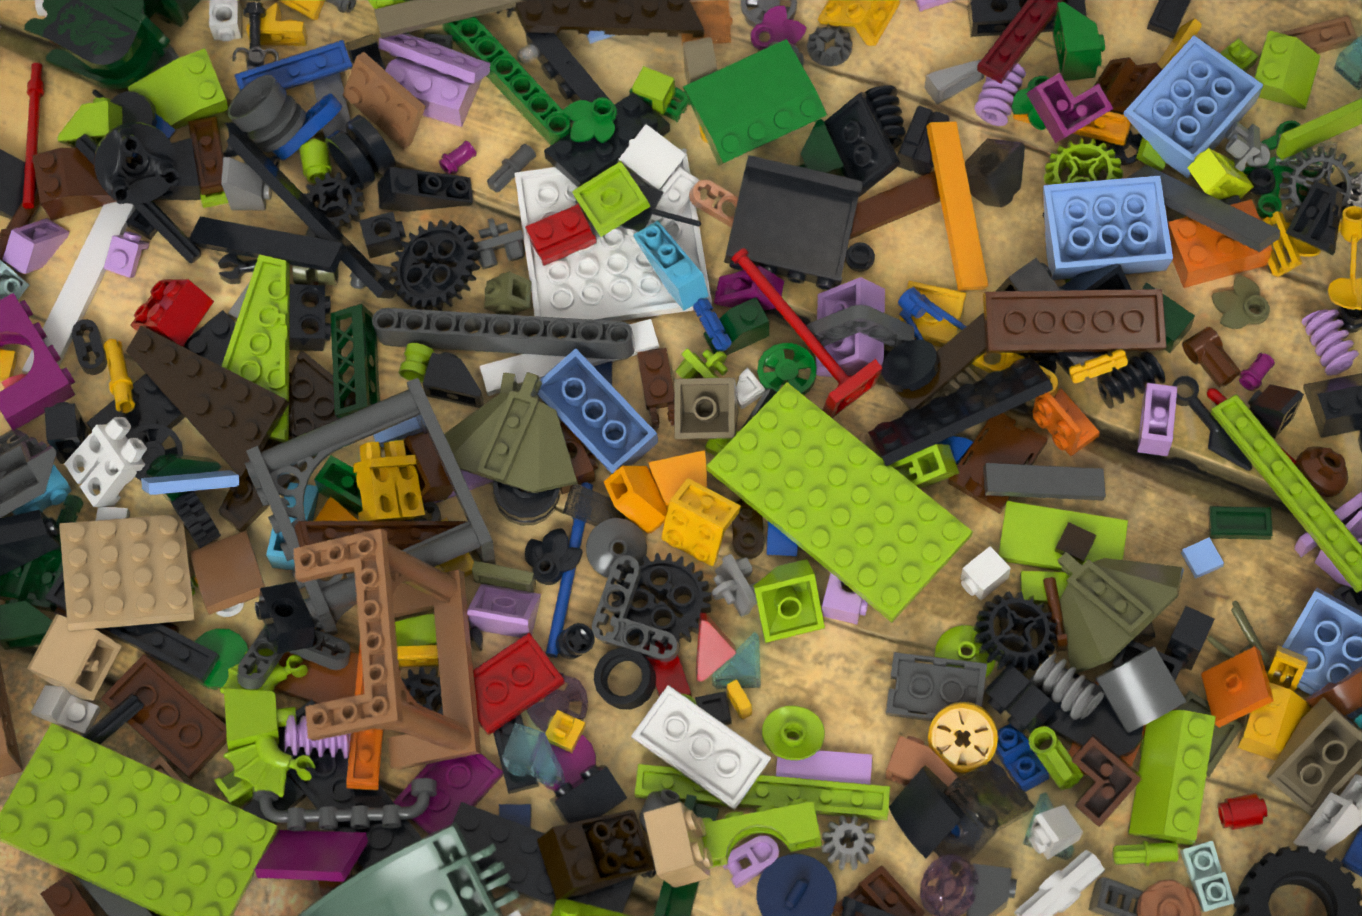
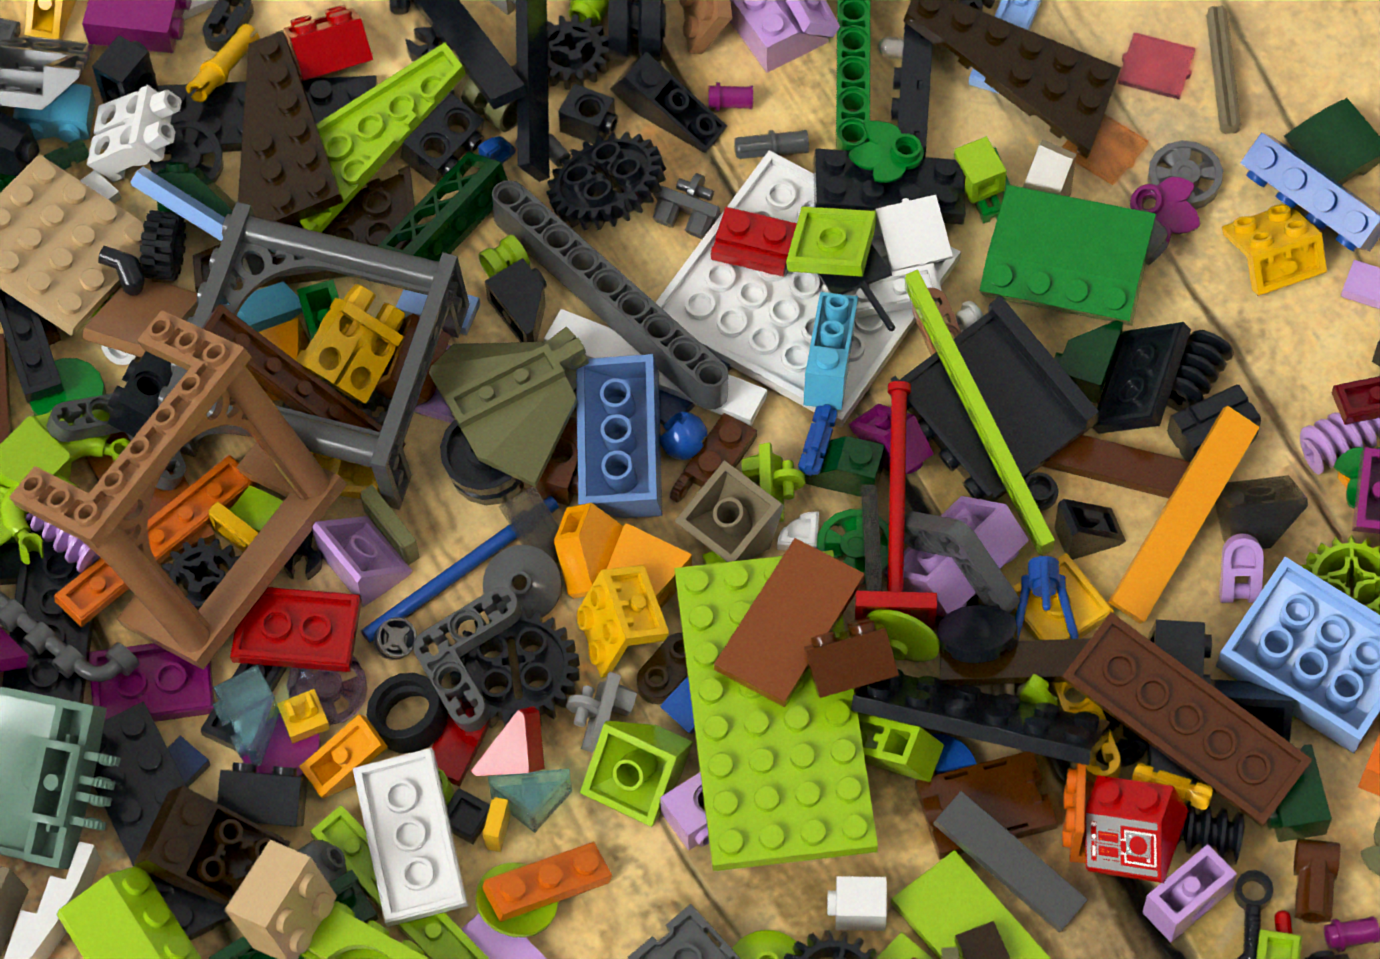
camera: 40 degrees right, 5 degrees down
(191, 549) = (127, 268): none -> black arm
(345, 298) = (496, 149): none -> blue tile
(507, 294) = (648, 259): olive brick -> none
(552, 552) = (453, 543): black plate -> none
(615, 734) = (333, 764): none -> light orange slope
(629, 383) = (683, 436): none -> blue piece
(730, 182) = (968, 315): none -> white arm
(792, 234) = (979, 413): none -> lime tile
(800, 361) = (870, 538): none -> clear smoke tile
(800, 708) = (546, 881): none -> orange plate
(806, 443) = (795, 604): none -> dark orange tile
(834, 55) = (1204, 273): dark grey gear -> none
(866, 433) = (853, 659): none -> reddish brown brick
(868, 401) = (907, 636): none -> lime dish
(907, 258) = (1086, 528): none -> black slope
(952, 80) = (1301, 387): light grey slope -> none
(972, 373) = (1036, 691): none -> lime tile
(1013, 205) = (1241, 557): none -> lavender plate
(1101, 407) = (1132, 828): none -> red slope

